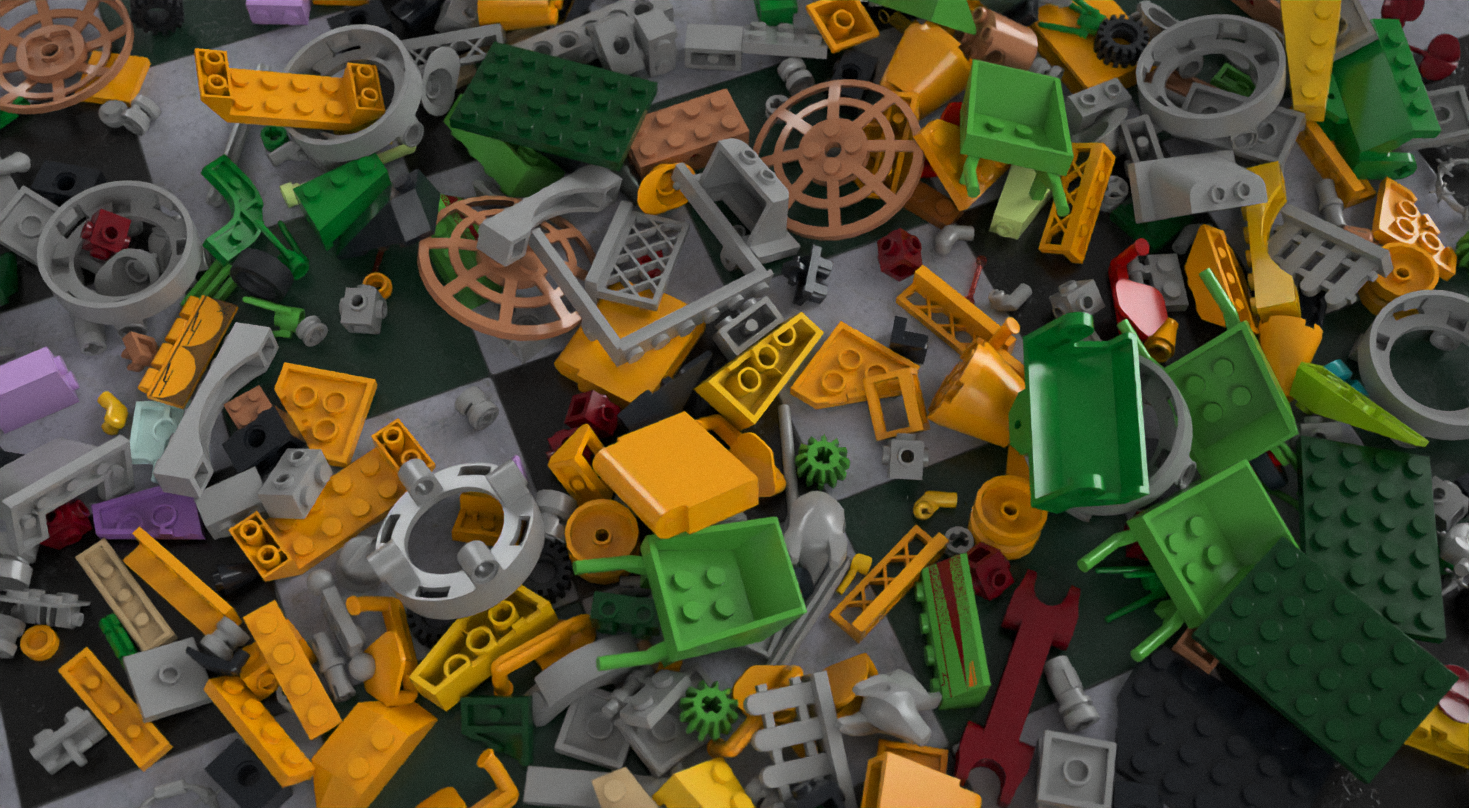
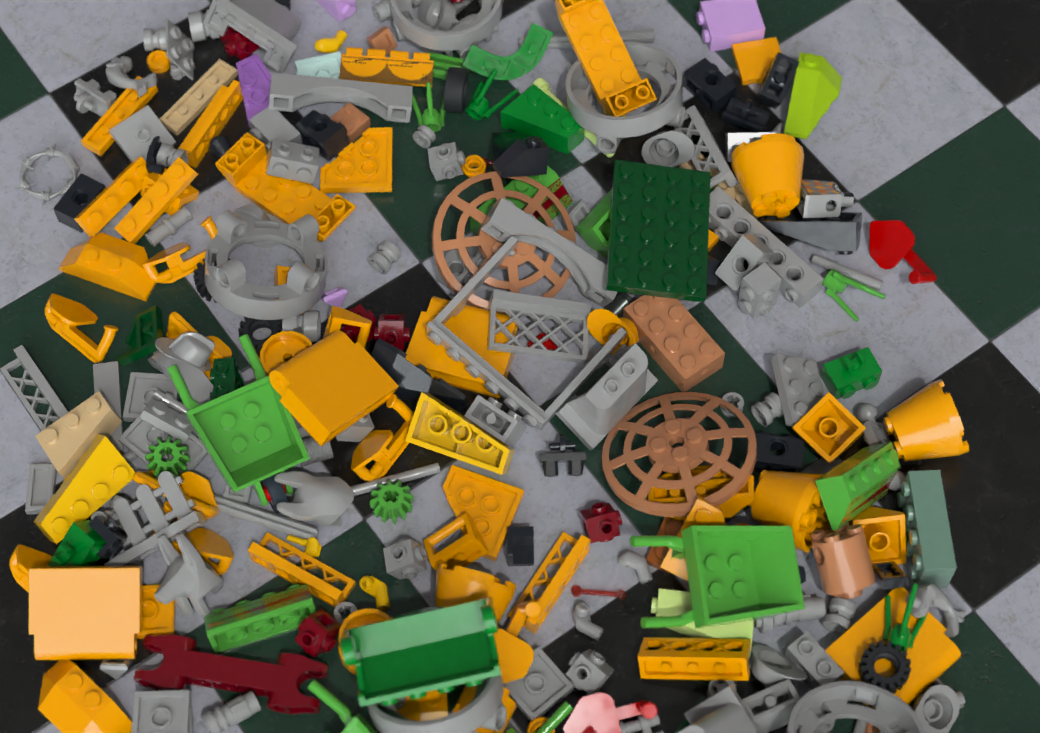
camera: 80 degrees right, 0 degrees up
(46, 699) = (116, 75): none -> light grey animal
(117, 637) = (167, 102): green axle -> none
(348, 635) = (192, 227): light grey plate -> none
(472, 643) = (194, 303): yellow wedge -> none
(562, 650) = (188, 348): none -> light grey piece
(718, 45) = (774, 335): light grey brick -> none

